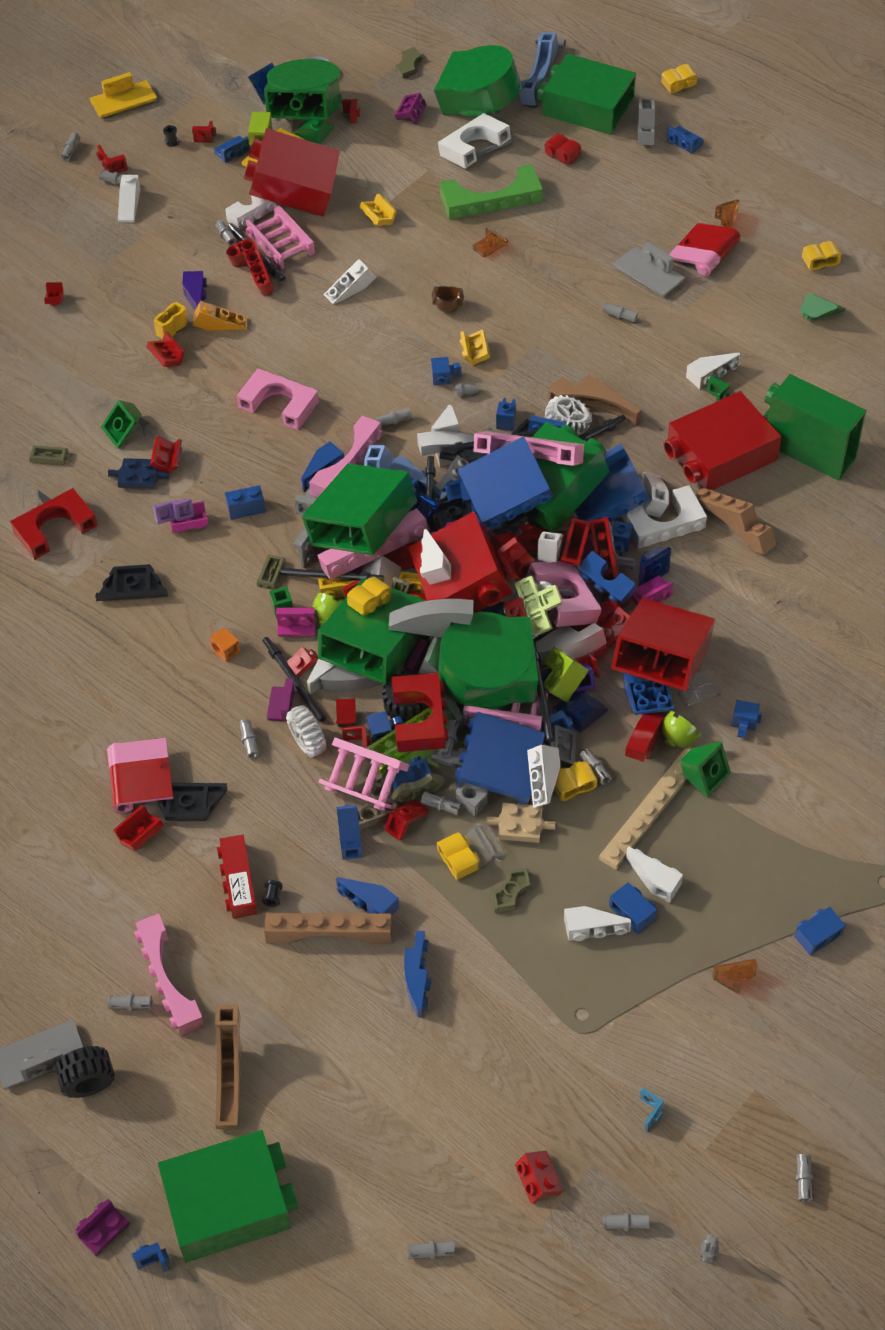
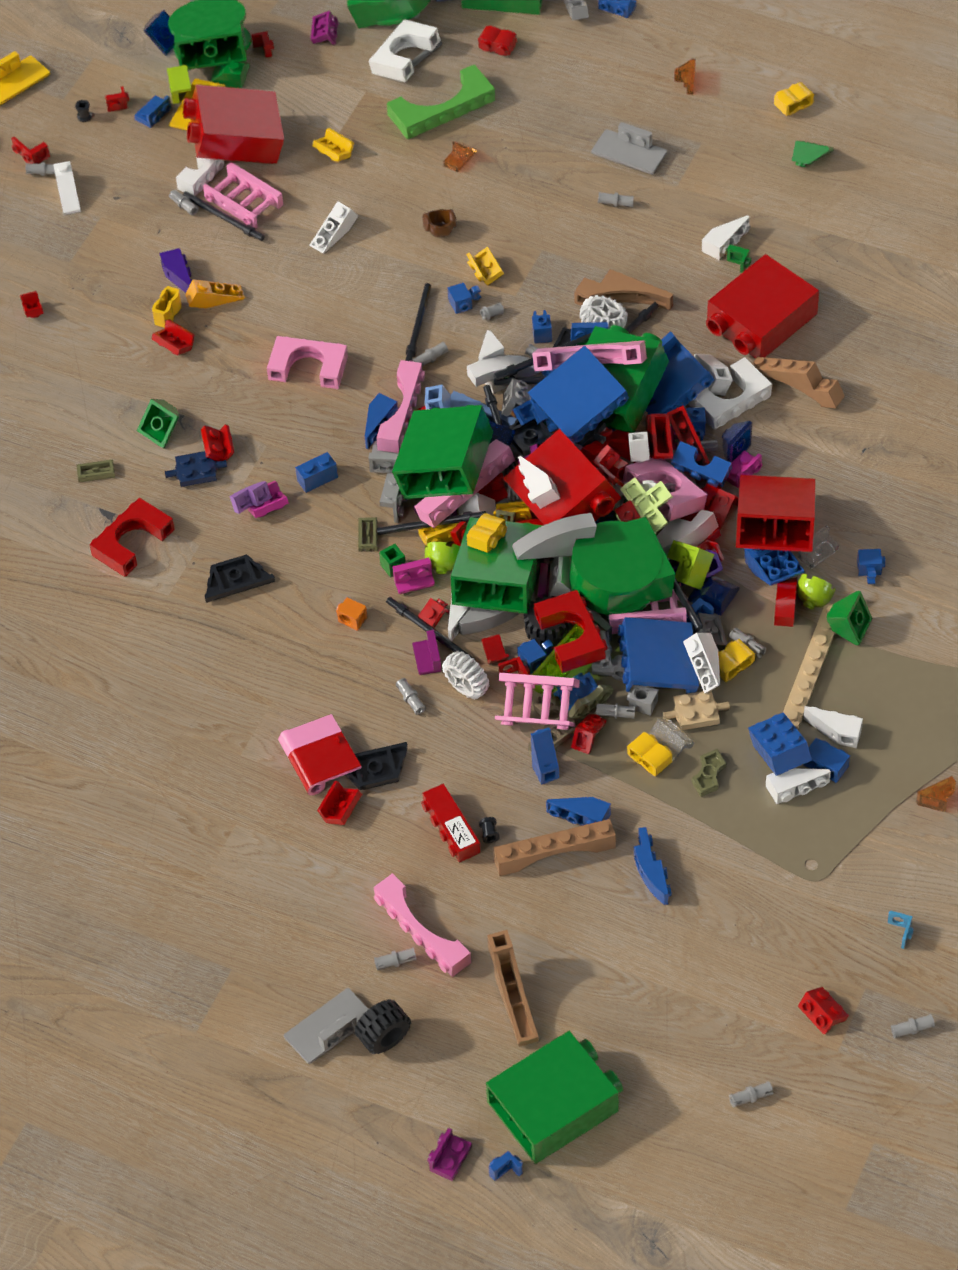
camera: 15 degrees left, 0 degrees up
(248, 252) = (221, 222): red beam -> none
(379, 407) = (411, 348): none -> black bar
(588, 879) = (779, 743): none -> blue brick
(706, 246) = (676, 113): red door -> none
(815, 425) = (848, 272): green brick -> none

